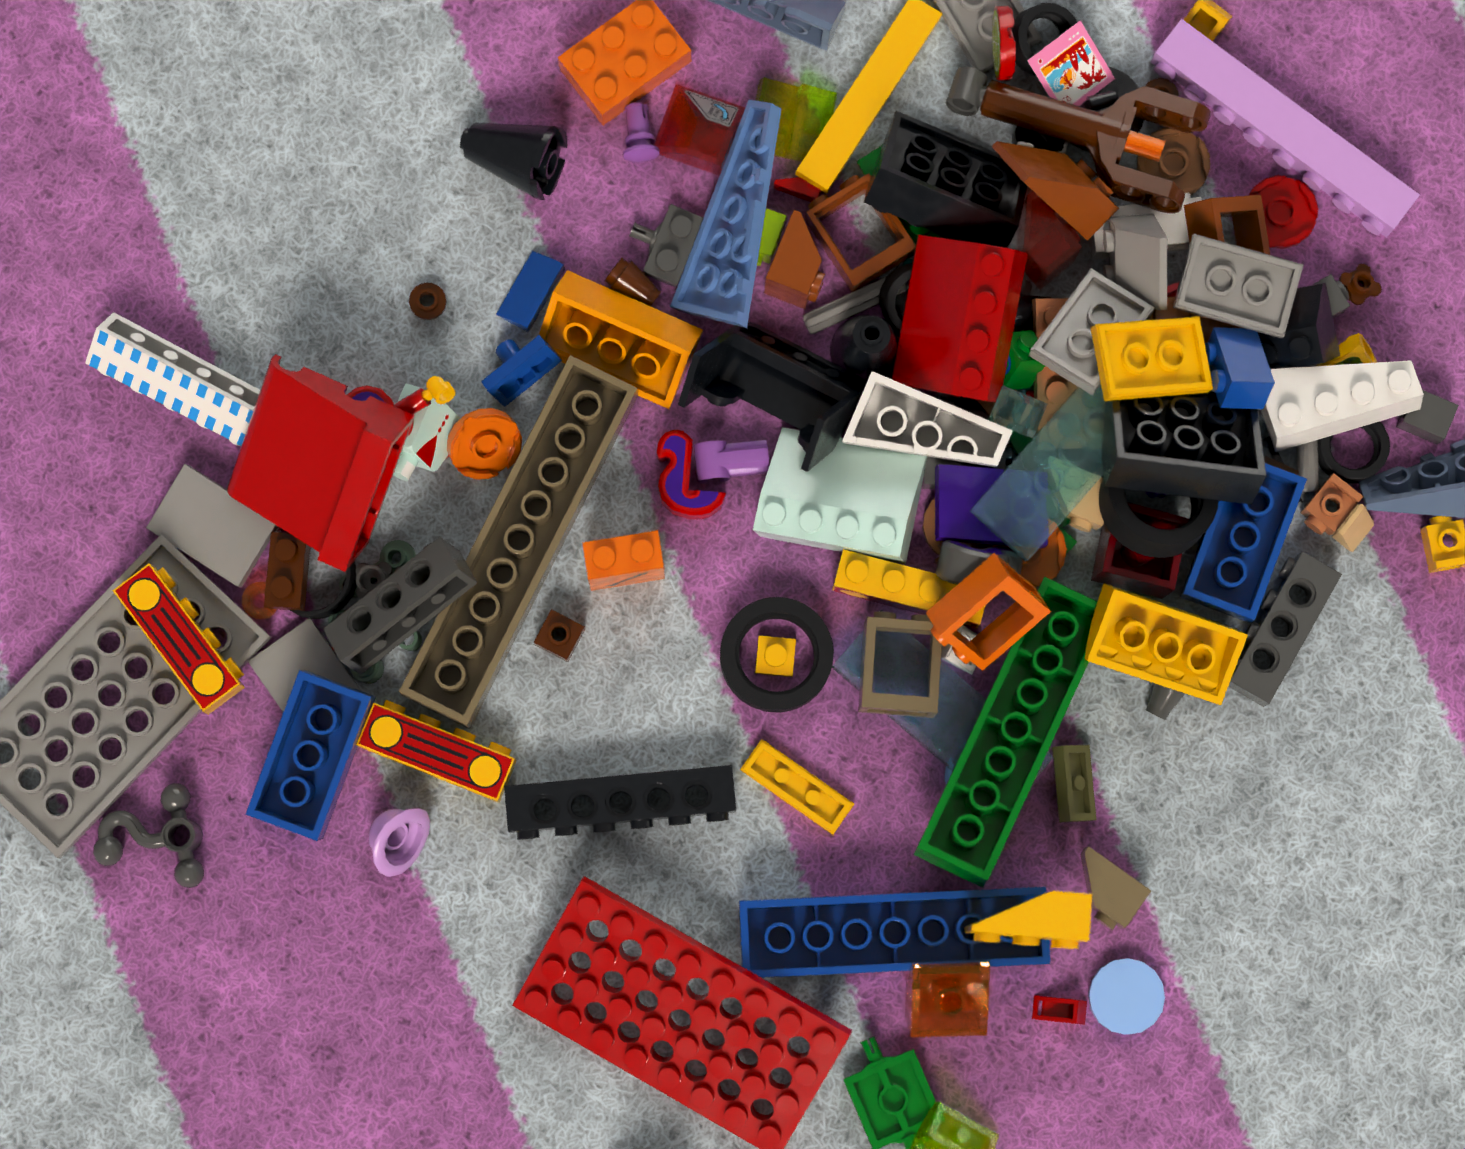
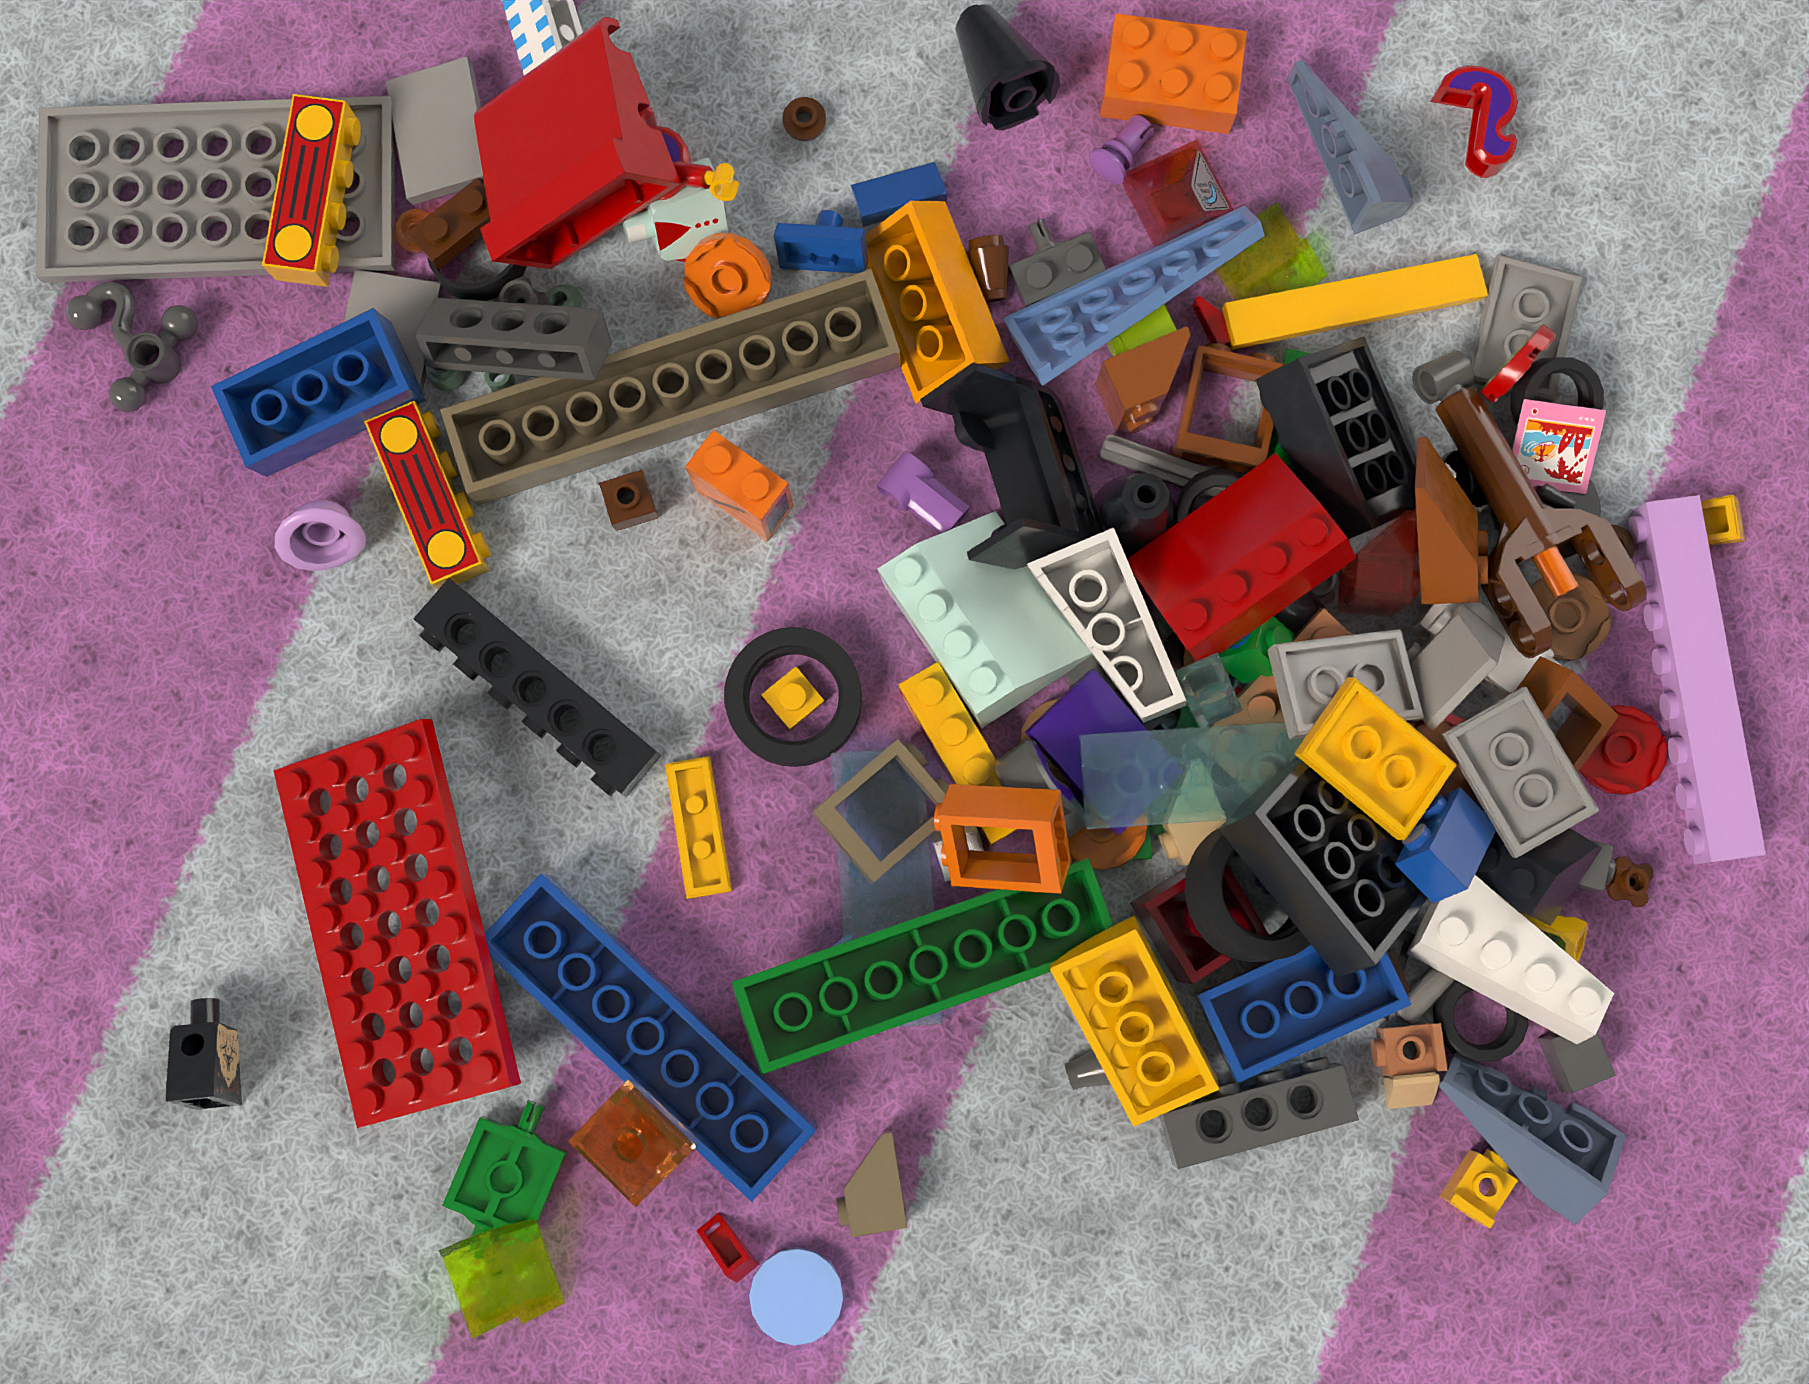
camera: 50 degrees right, 0 degrees up
(674, 480) = (861, 464): red animal -> none
(1050, 916) = (778, 1156): yellow slope -> none
(1074, 783) = (936, 1065): olive plate -> none

